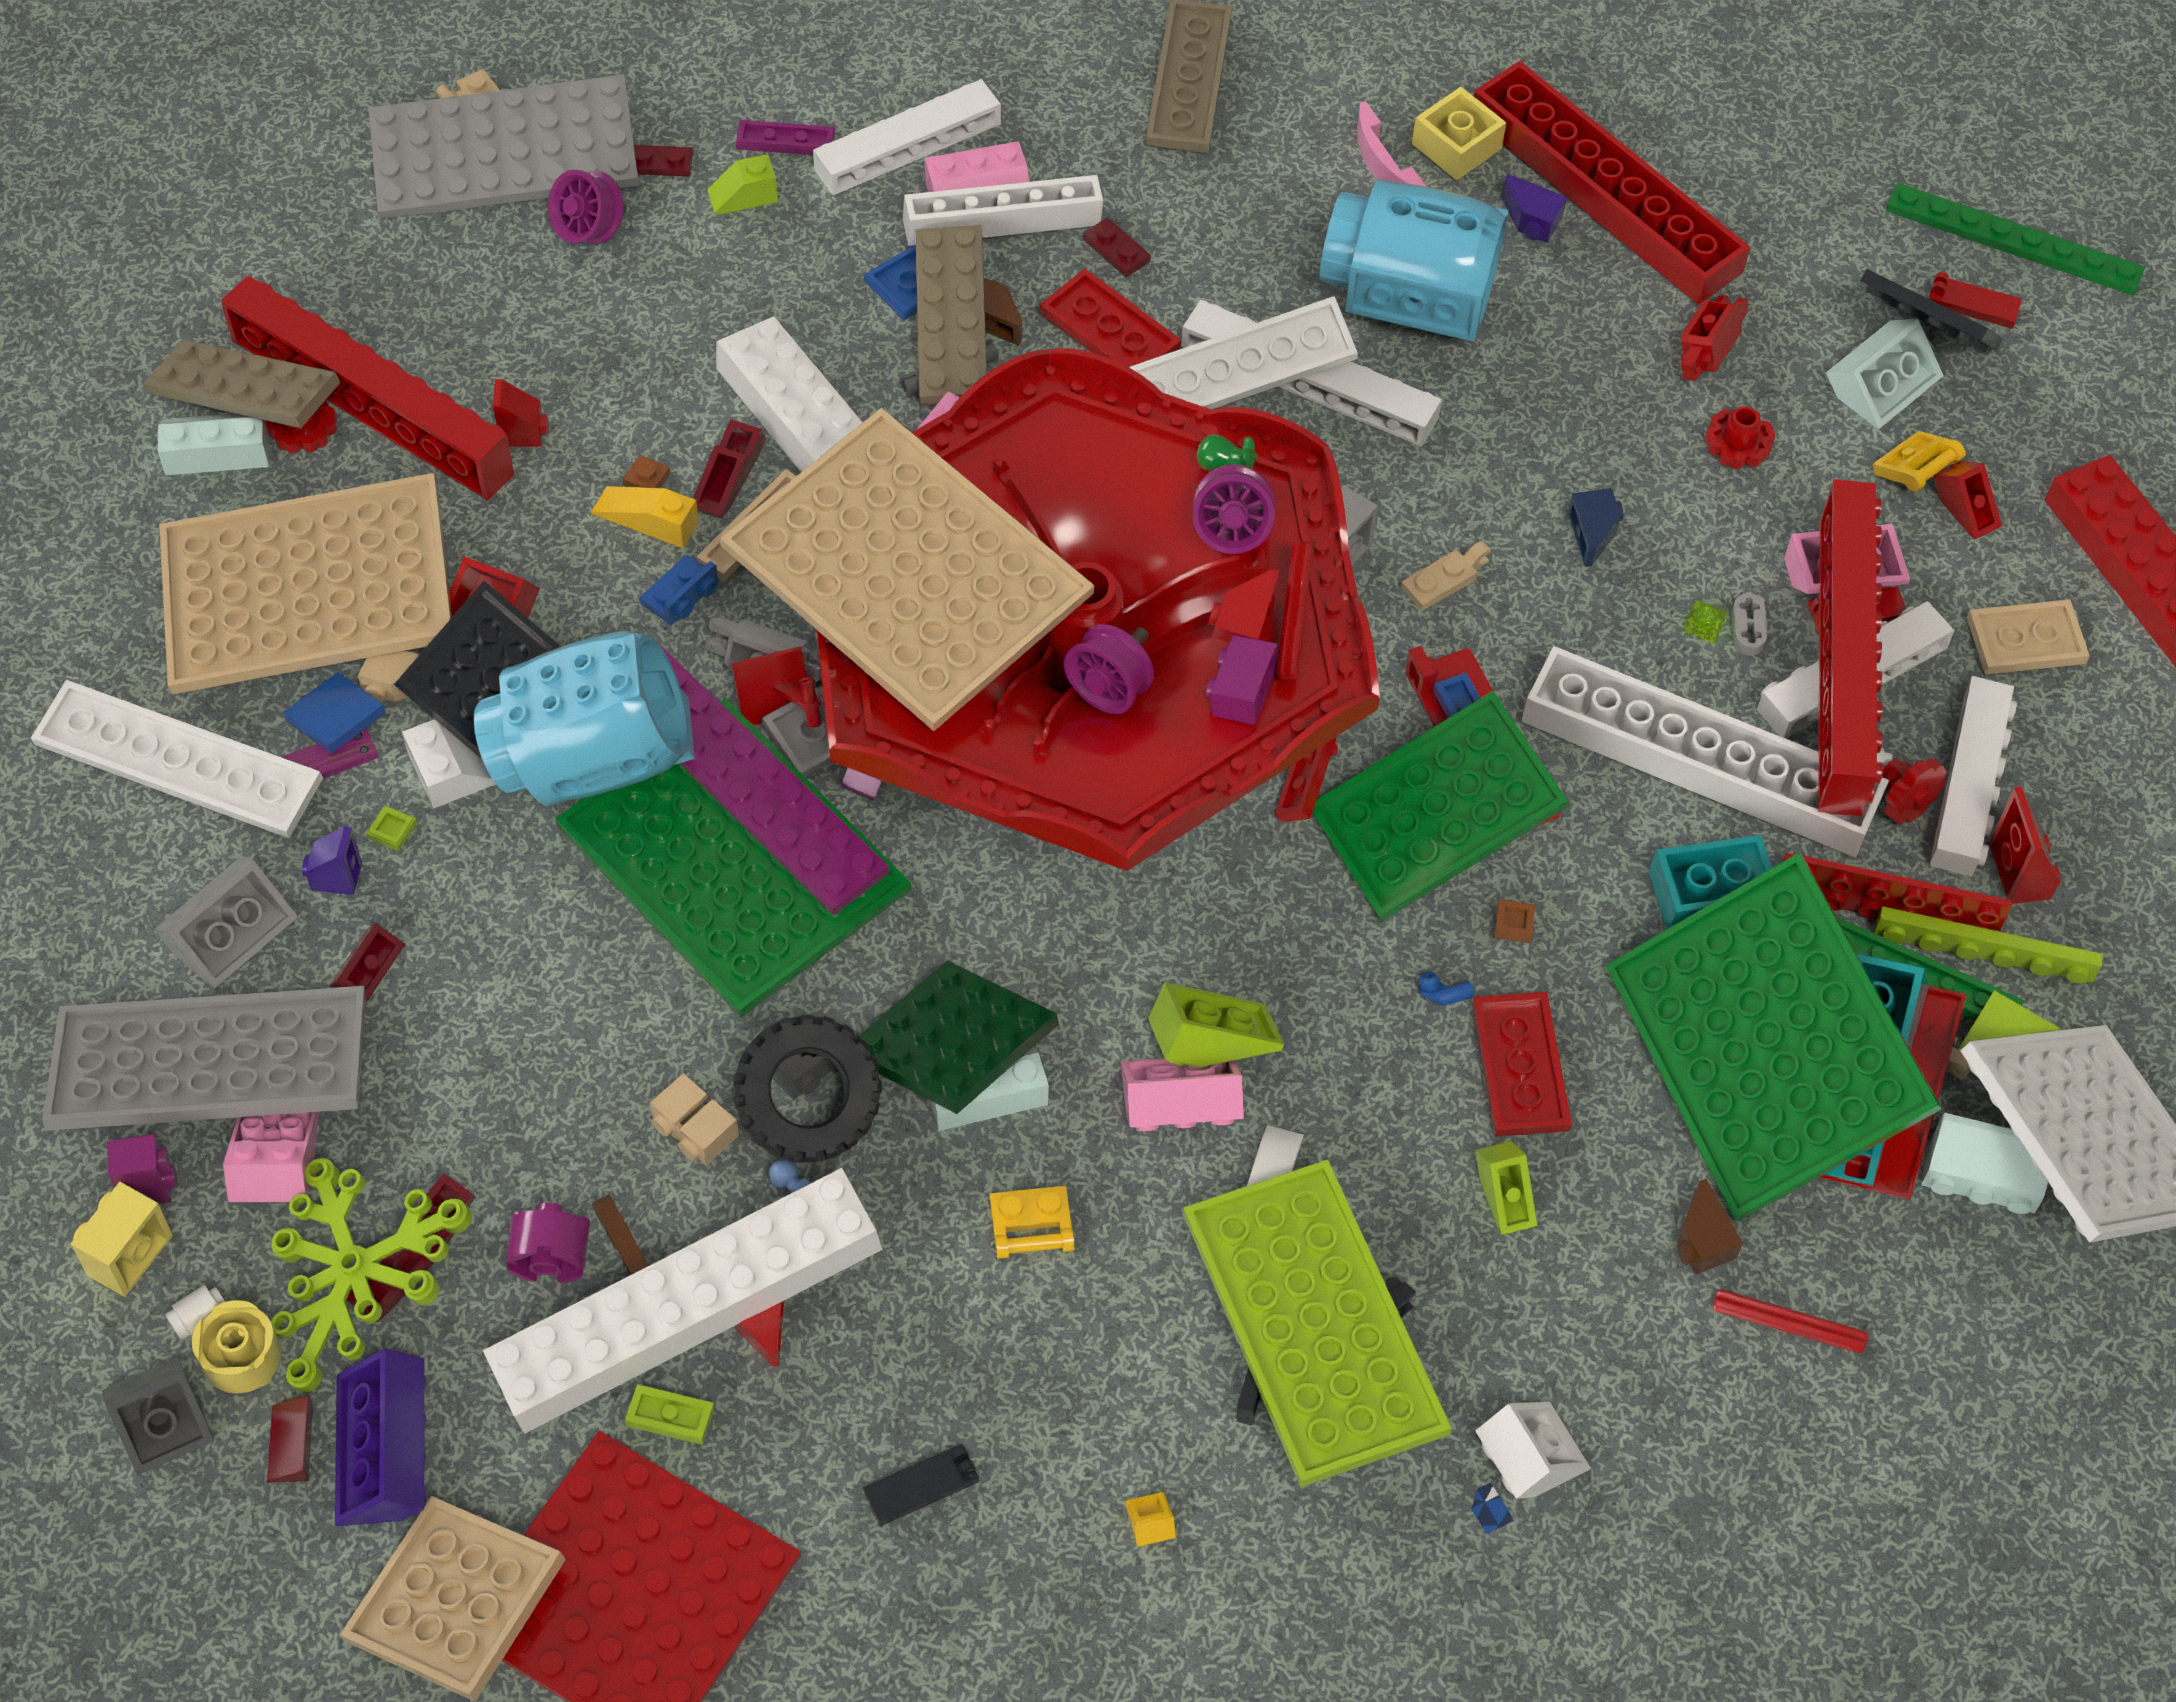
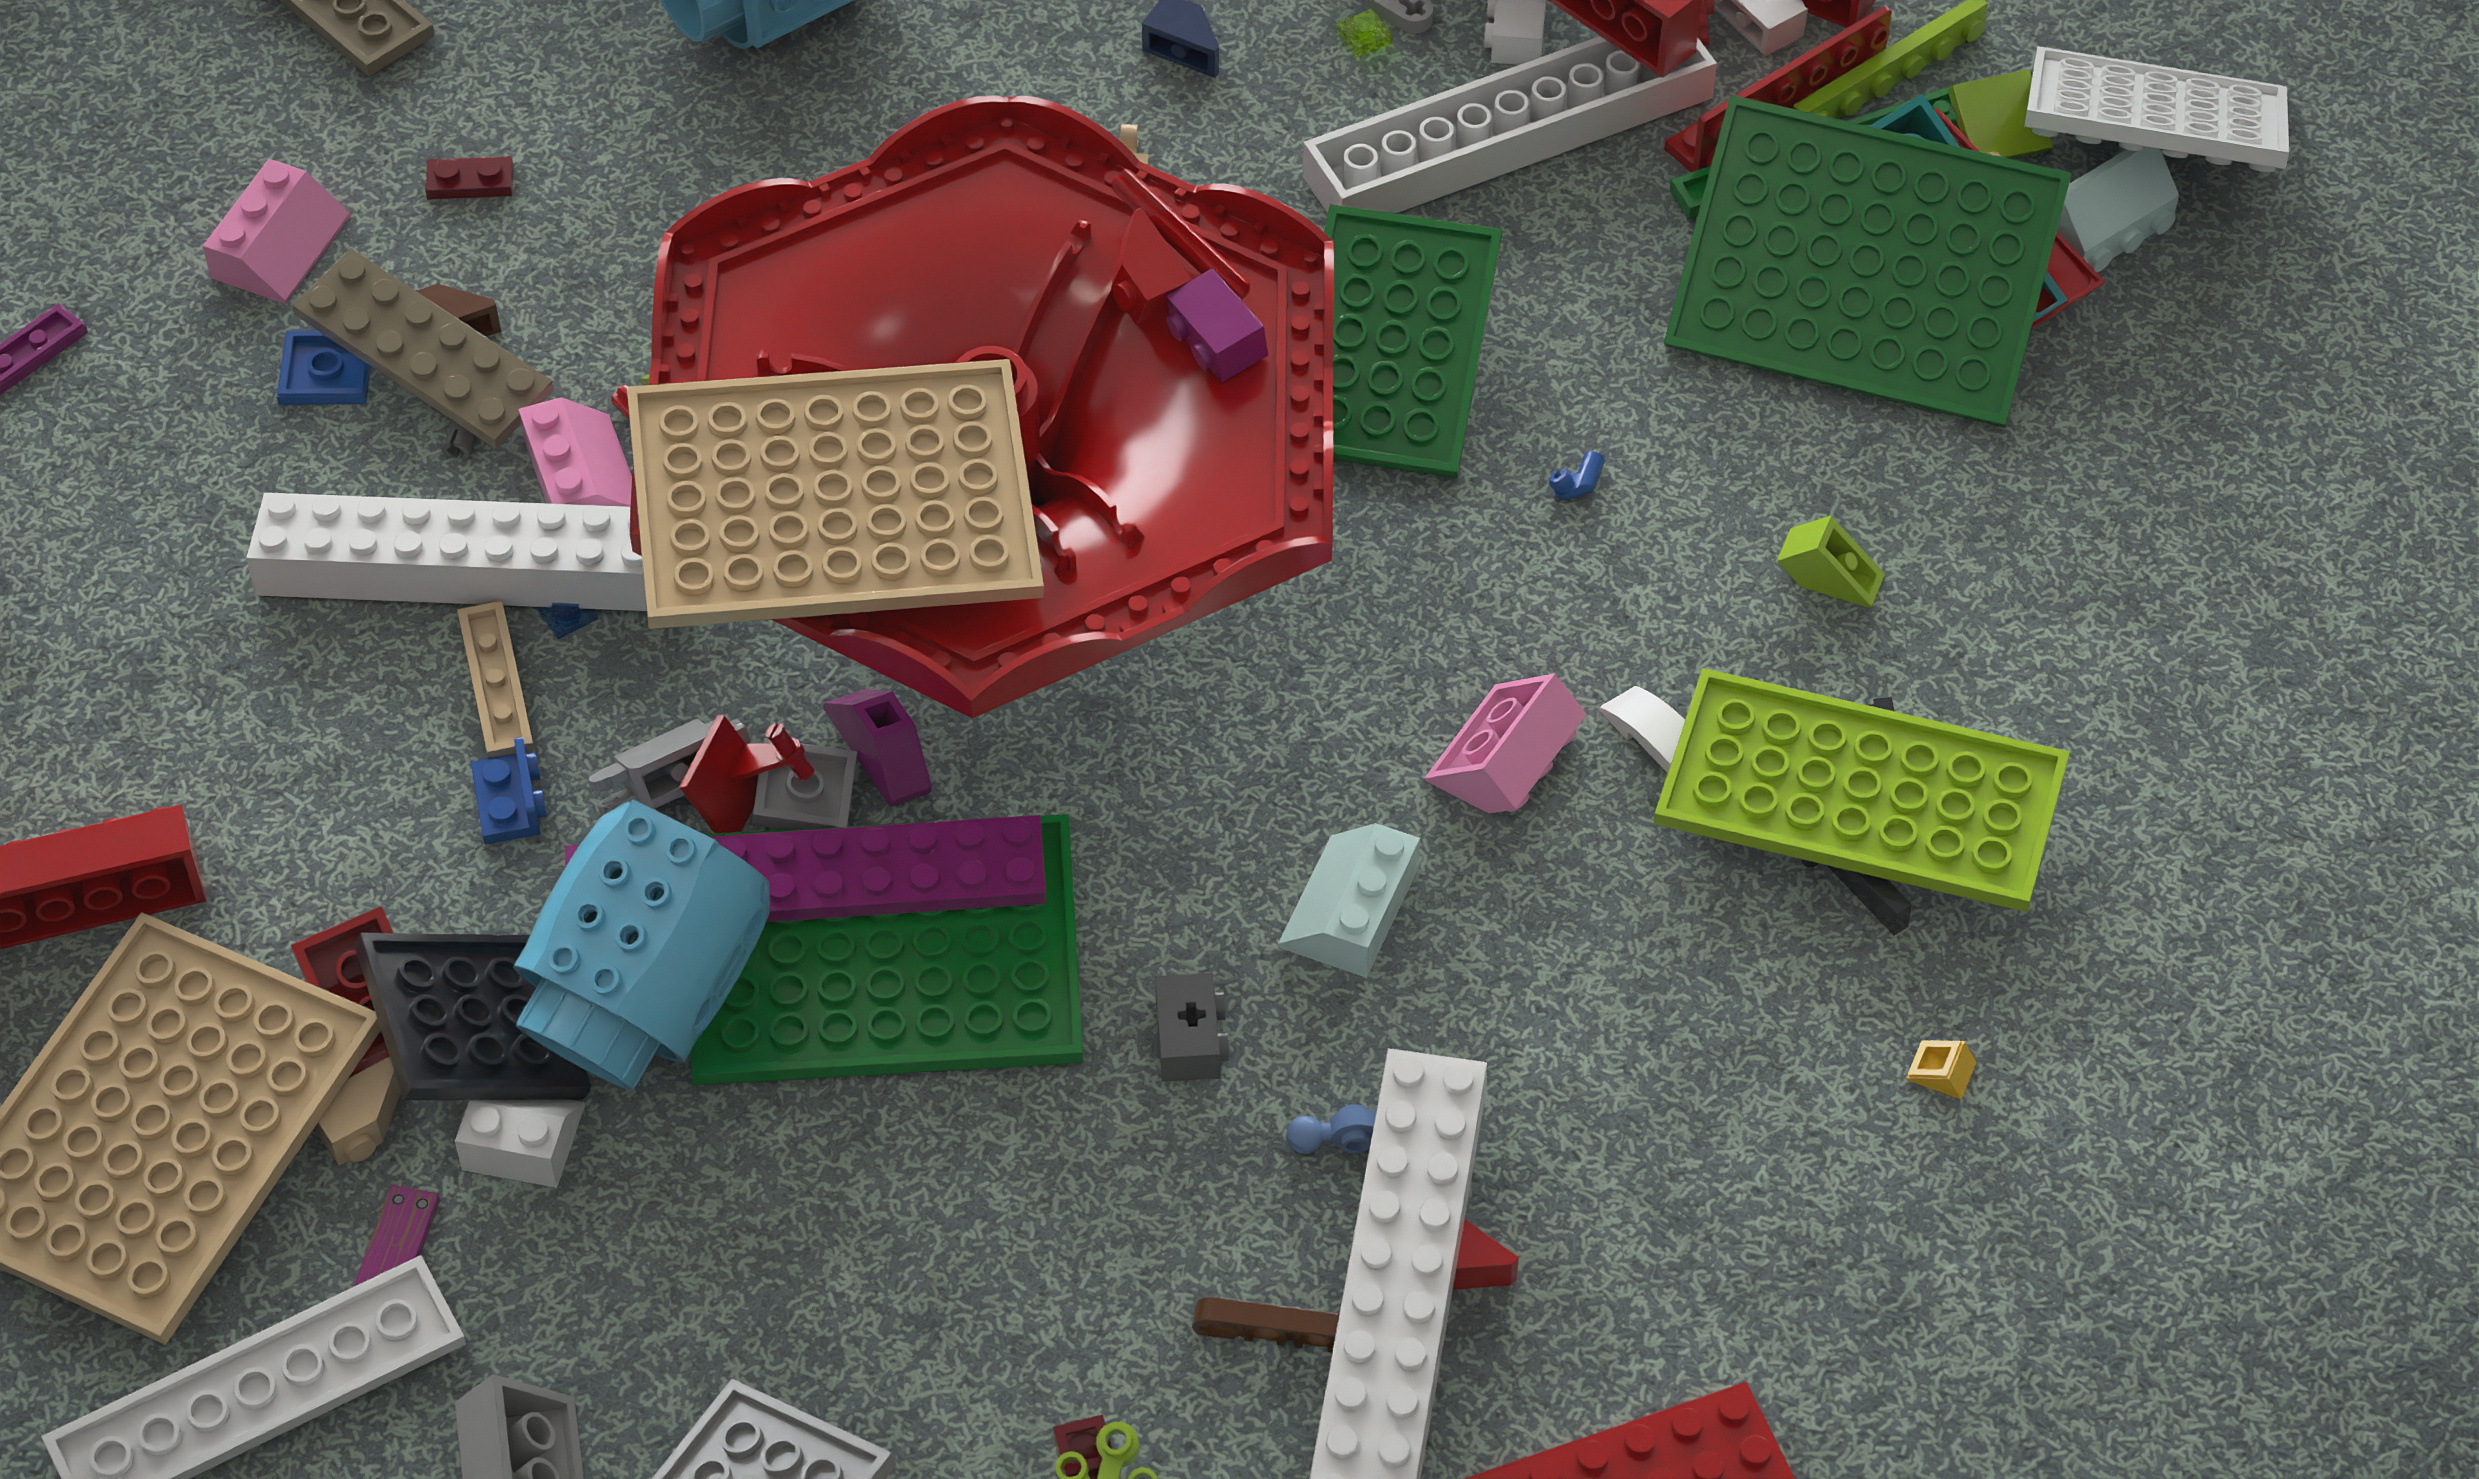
camera: 50 degrees left, 5 degrees down
(334, 712) = (347, 1202): blue tile -> none
(334, 863) = (552, 1309): dark purple slope -> none
(369, 960) = (693, 1361): dark red slope -> none
(391, 828) = (547, 1239): lime tile -> none
(519, 415) = (138, 789): red slope -> none
(547, 1244) = (1216, 1385): magenta brick -> none
(646, 473) = (329, 738): dark orange plate -> none
(650, 511) = (382, 760): yellow slope -> none
(669, 1414) = (1497, 1403): lime plate -> none
(699, 1127) = (1199, 1166): tan piece -> none
(728, 468) = (401, 659): dark red slope -> none
(744, 186) = (51, 422): lime slope -> none
(859, 1080) = (1293, 1005): black tyre -> none
(907, 137) = (143, 252): white brick -> none
(921, 1484) = (1753, 1233): black hinge -> none
(955, 1036) = (1291, 883): dark green plate -> none
(1008, 207) = (336, 222): white brick -> none
(1029, 1211) = (1529, 952): yellow plate -> none
(1107, 321) = (563, 242): red plate -> none
(1110, 667) = (1101, 419): magenta wheel -> none
(1210, 1027) = (1465, 675): lime slope -> none
(1218, 451) = (943, 180): green animal -> none
(1233, 509) = (1023, 202): magenta wheel -> none
(1255, 357) = (741, 144): white plate -> none
(1344, 388) = (788, 125): white brick -> none
(1490, 1509) = (2143, 798): sticker -> none
(1514, 921) = (1555, 377): dark orange plate -> none
(1521, 1064) = (1710, 471): red plate -> none
(1531, 1448) = (2116, 725): white slope -> none
(1702, 873) = (1653, 207): teal slope -> none
(1707, 1233) = (2000, 450): reddish brown slope -> none
(1790, 1321) = (2138, 456): red axle -> none

